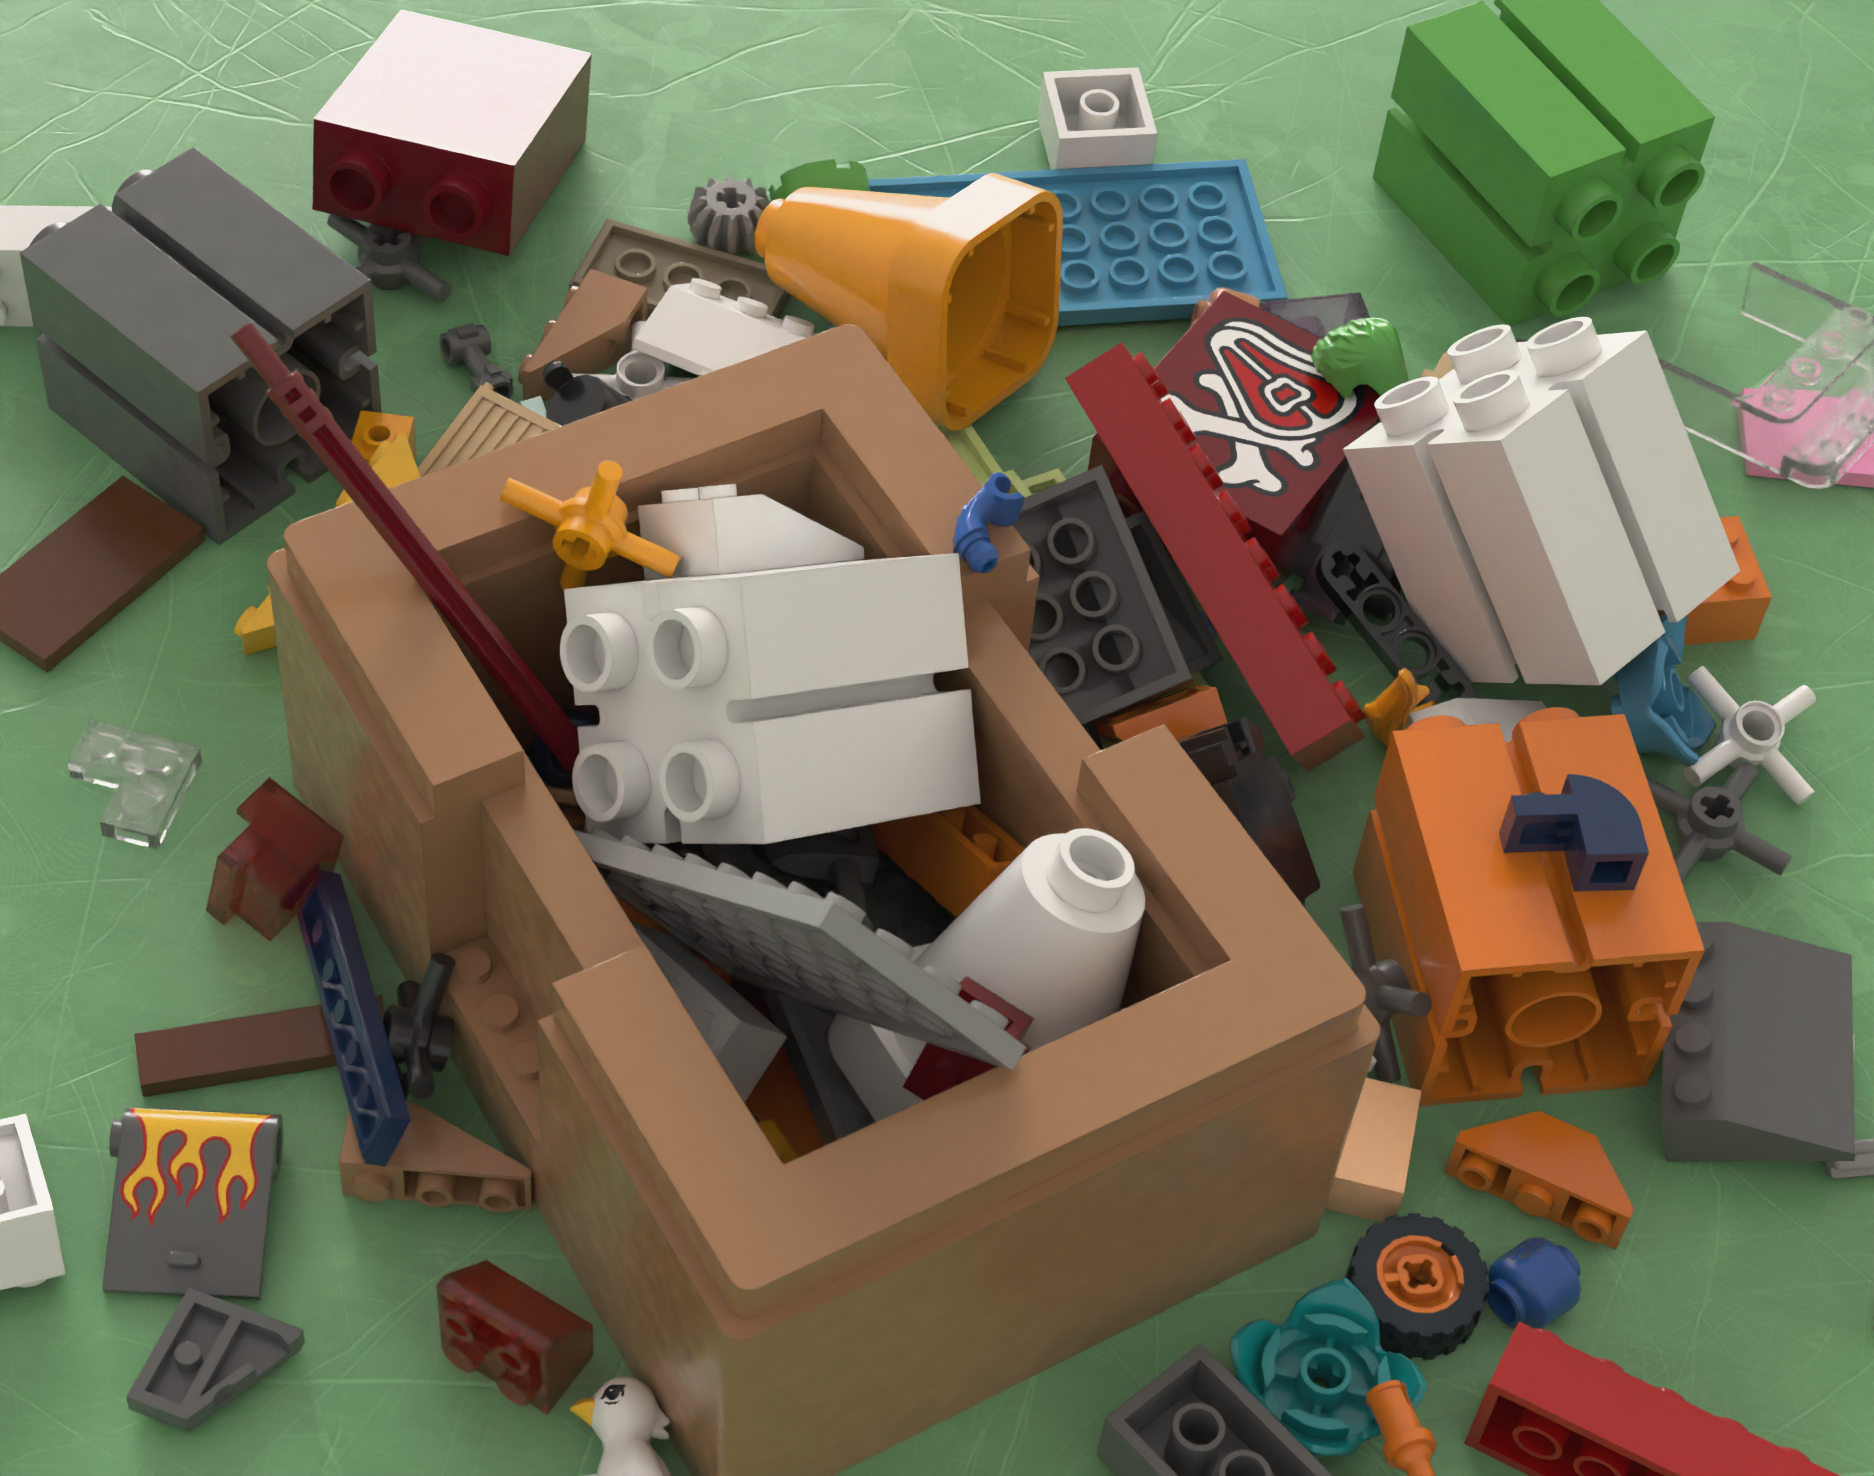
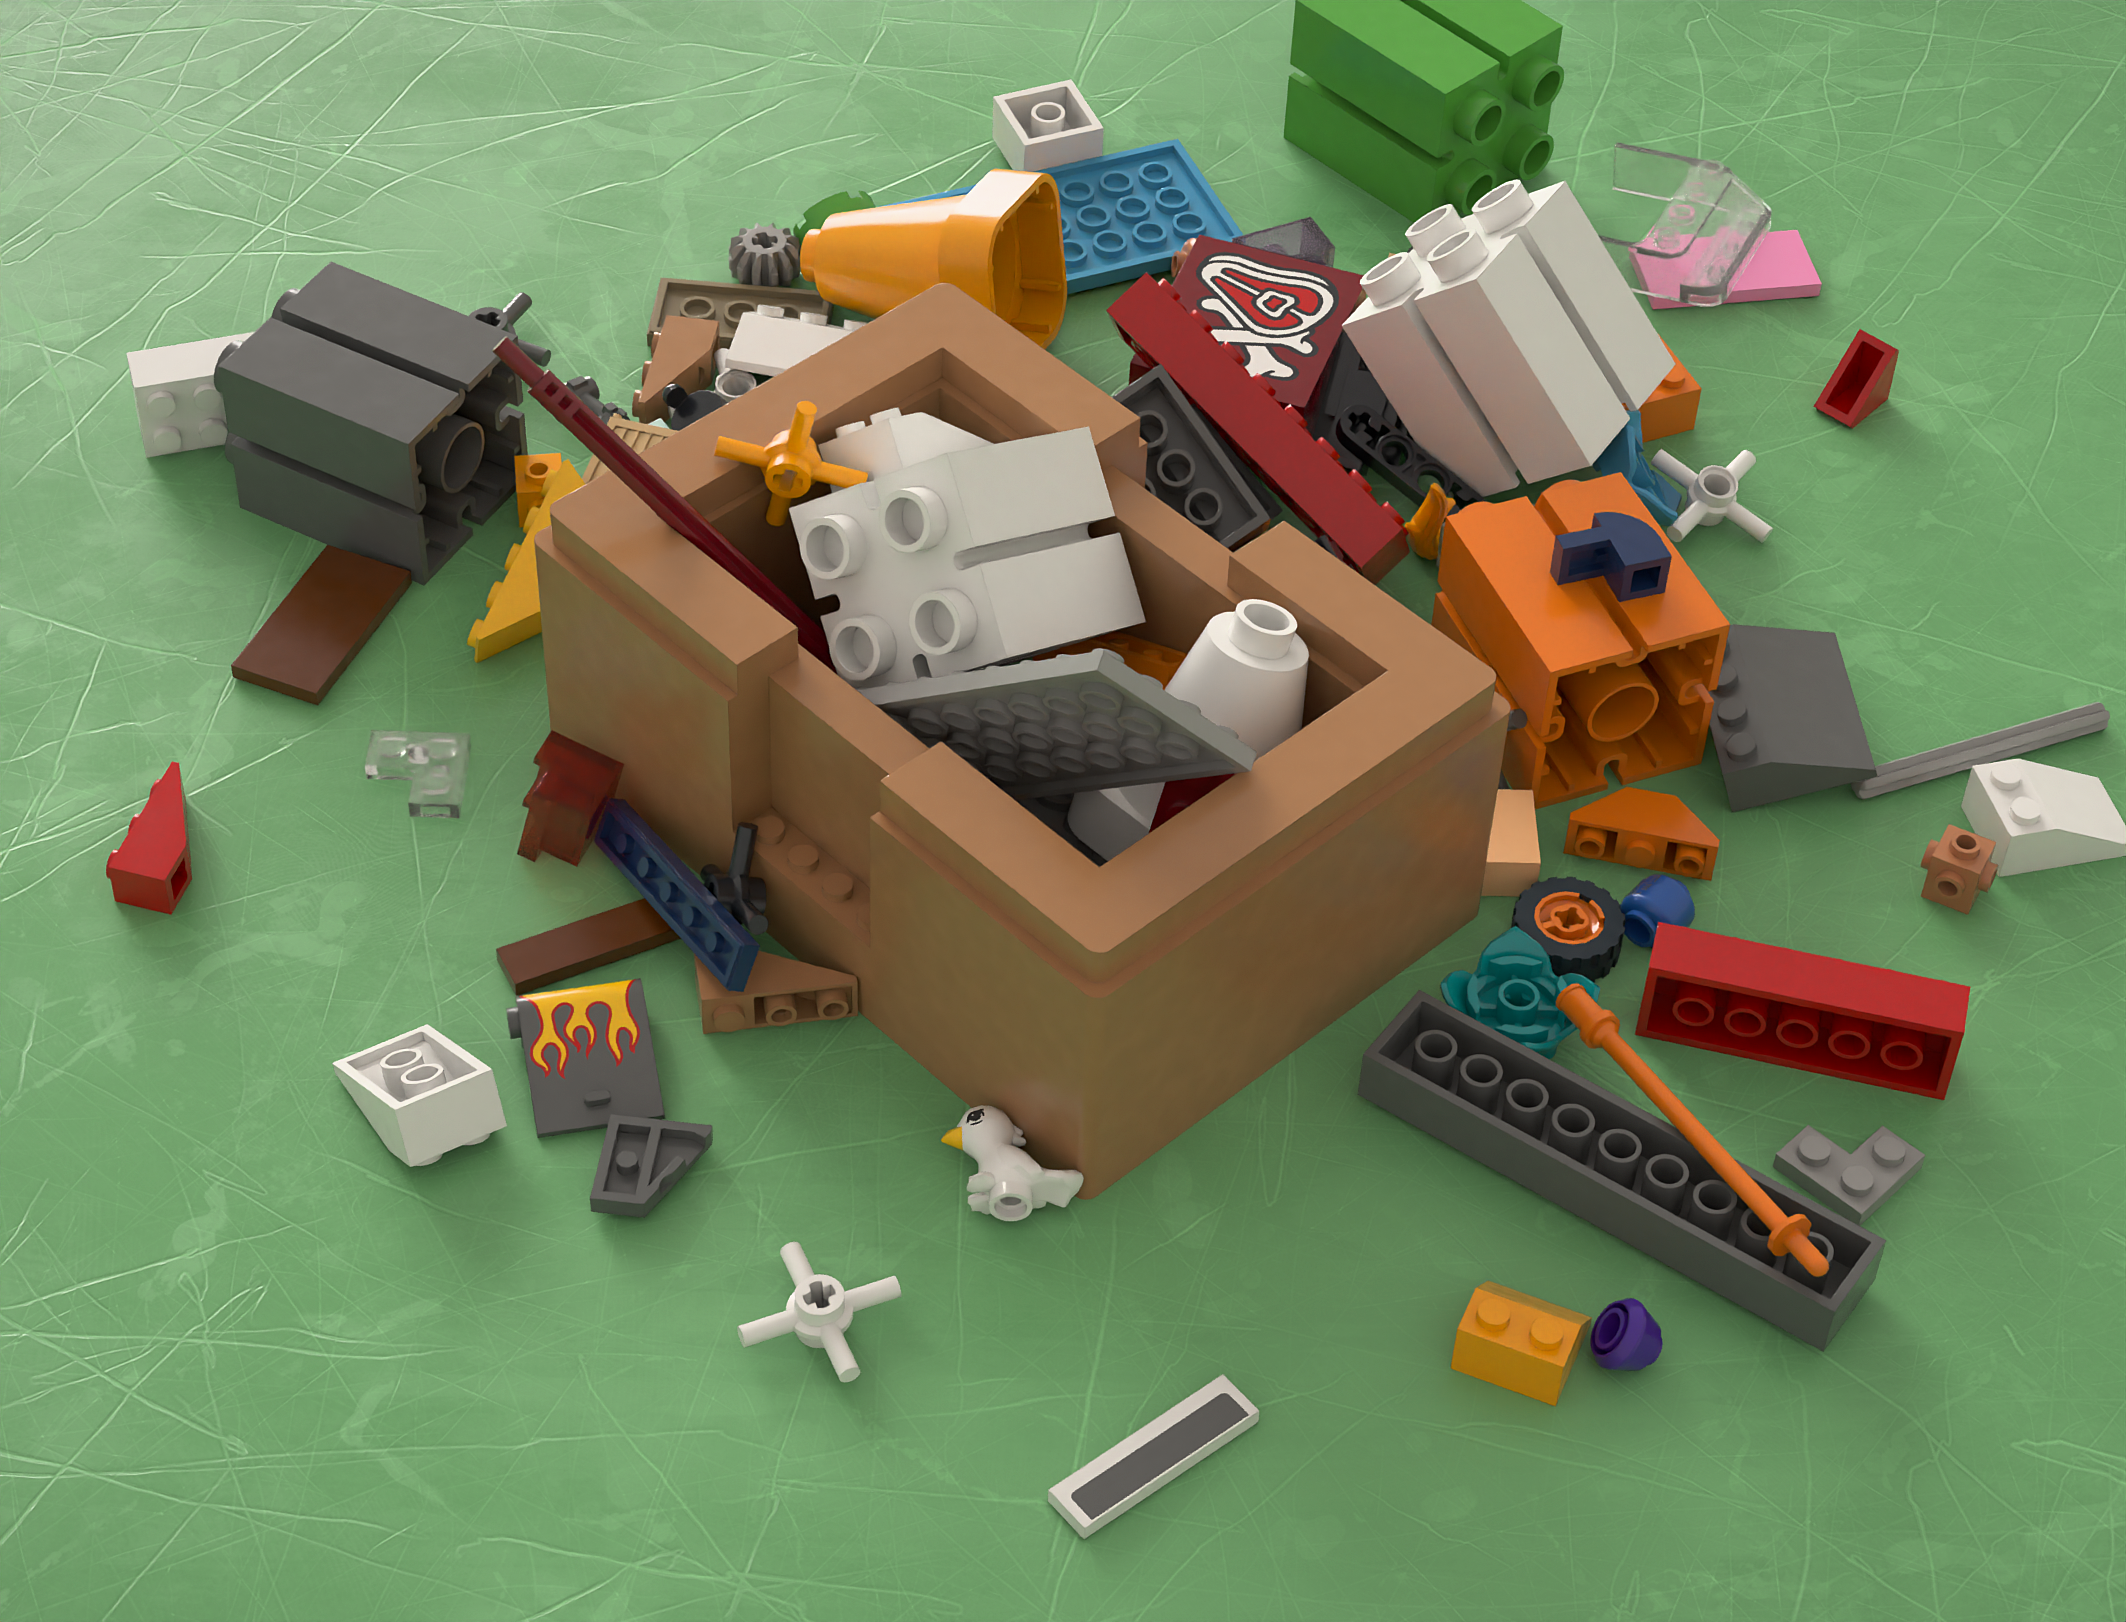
camera: 10 degrees left, 5 degrees down
(451, 132) = (517, 226): brick -> none
(511, 1334) = (879, 1097): clear red slope -> none
(987, 506) = (1100, 392): blue piece -> none
(1361, 354) = (1328, 259): bright green hair -> none
(1714, 823) = (1706, 561): dark grey bar -> none

